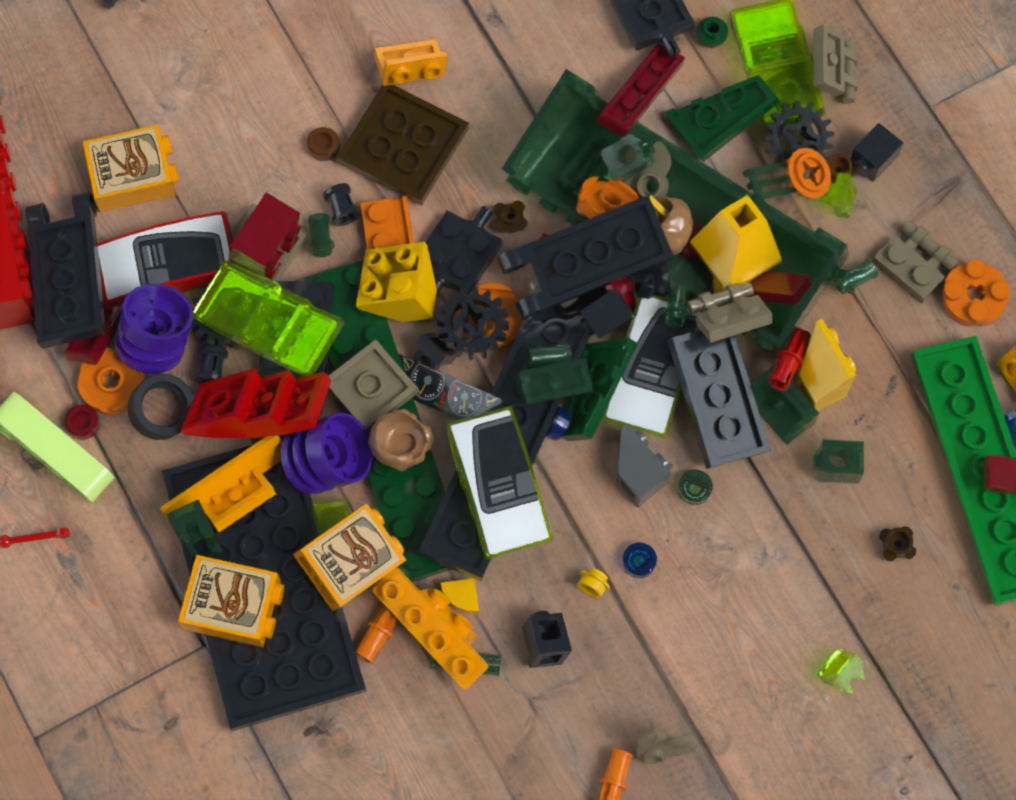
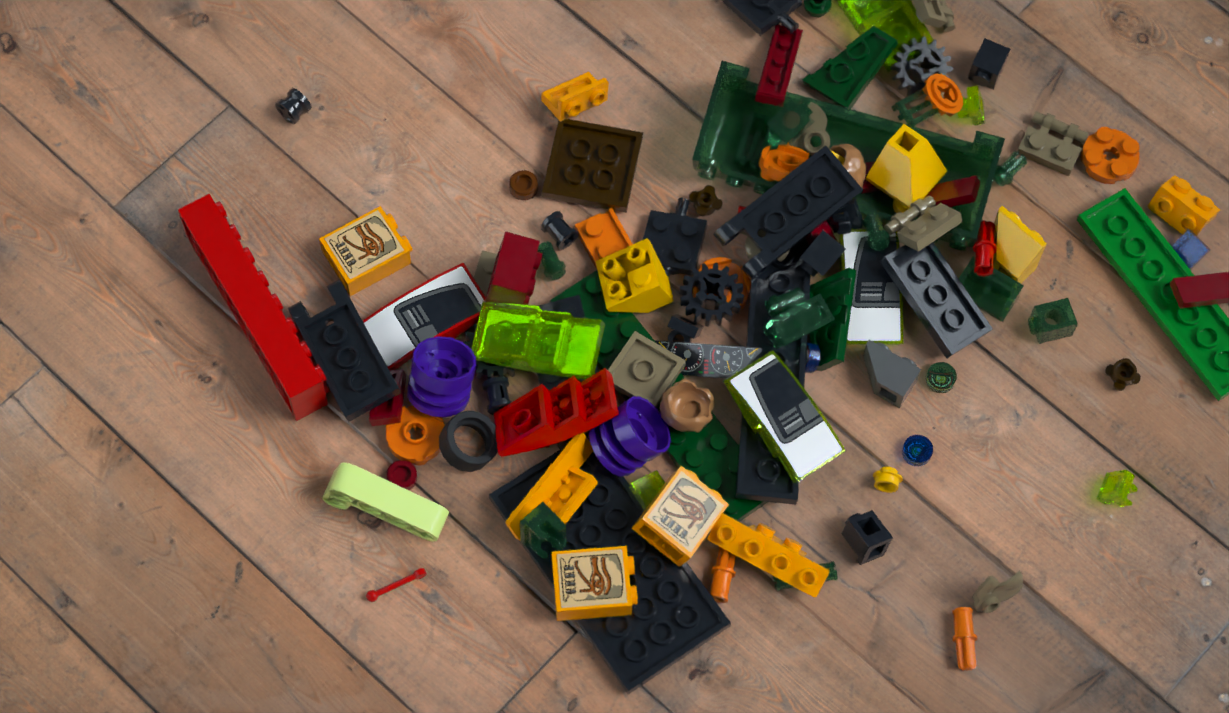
camera: 20 degrees left, 5 degrees down
(462, 594) = (782, 522): yellow tile -> none
(839, 161) = (964, 79): reddish brown plate -> none

